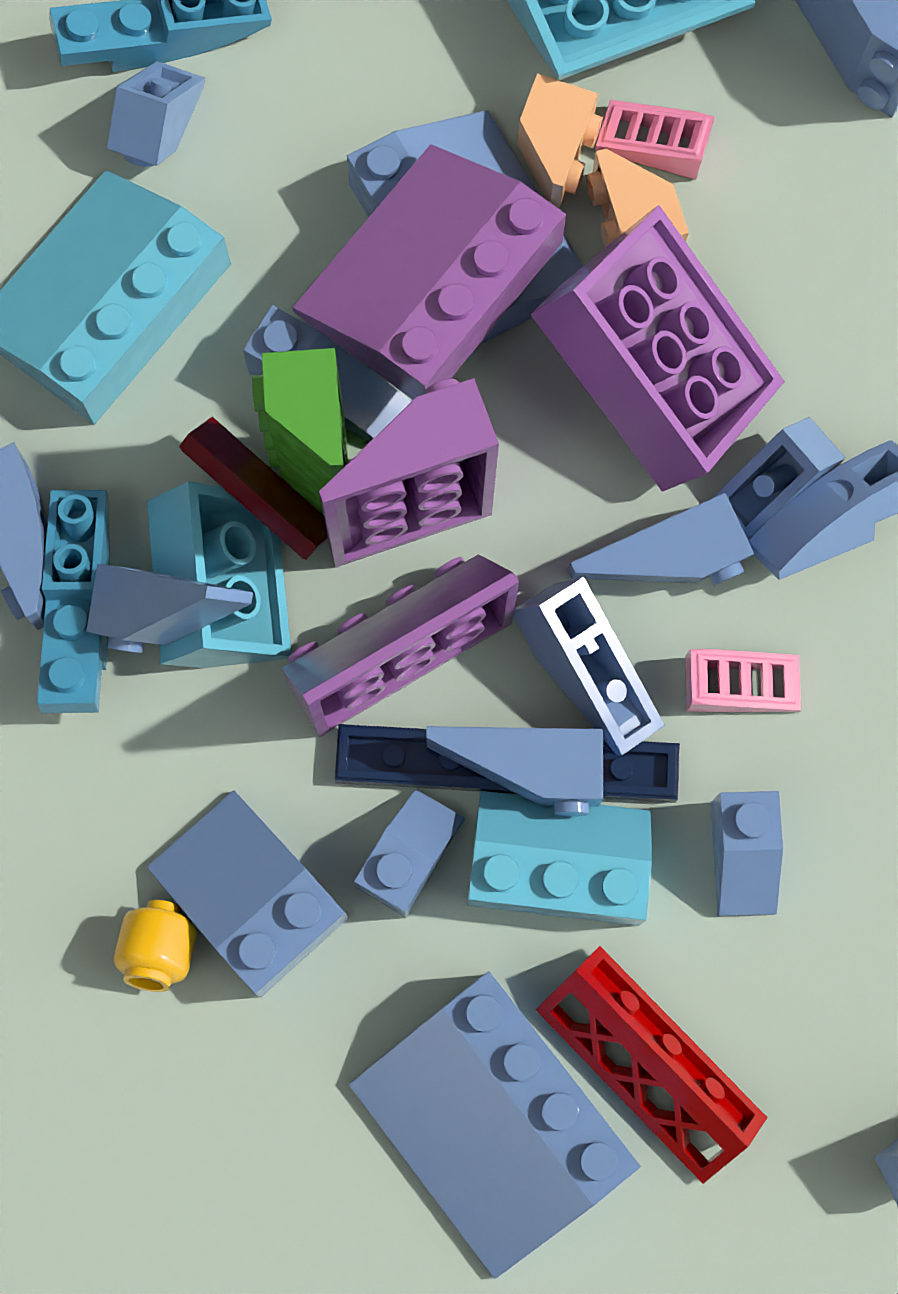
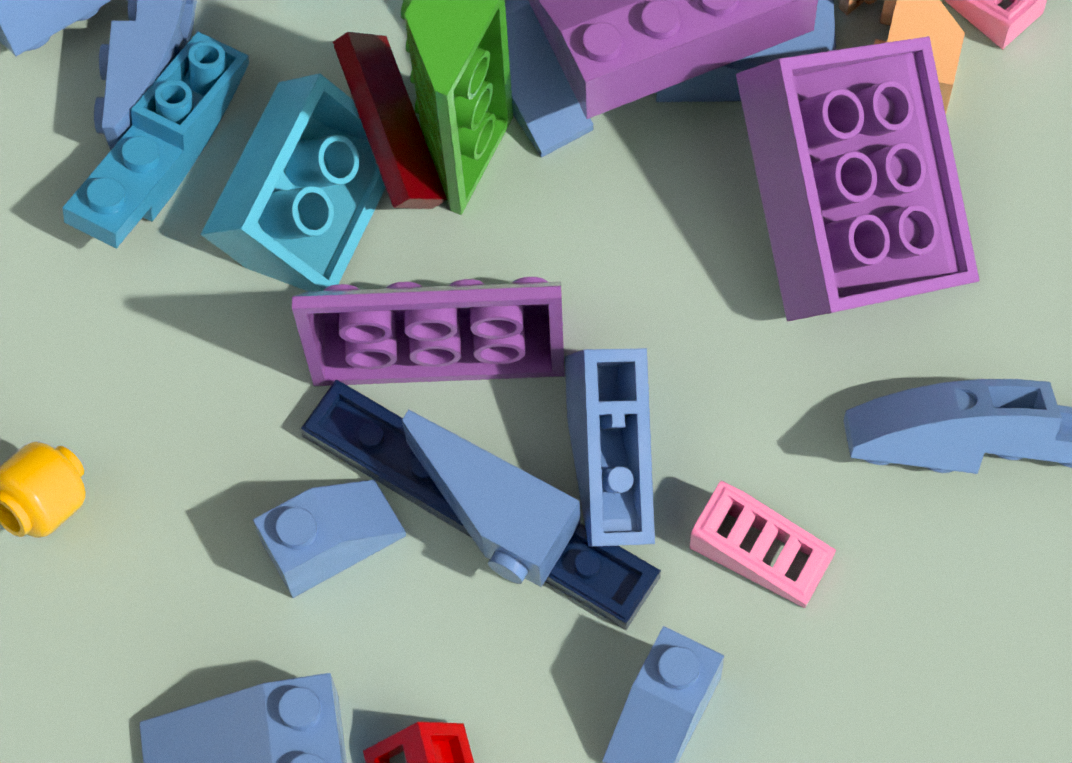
camera: 35 degrees right, 10 degrees down
(155, 607) = (220, 171): medium blue slope -> none
(247, 893) = (153, 495): medium blue slope -> none
(416, 476) = (523, 165): medium lavender slope -> none
(561, 864) = (467, 621): medium azure slope -> none
(678, 550) = (772, 381): medium blue slope -> none
(780, 473) = (914, 354): medium blue slope -> none

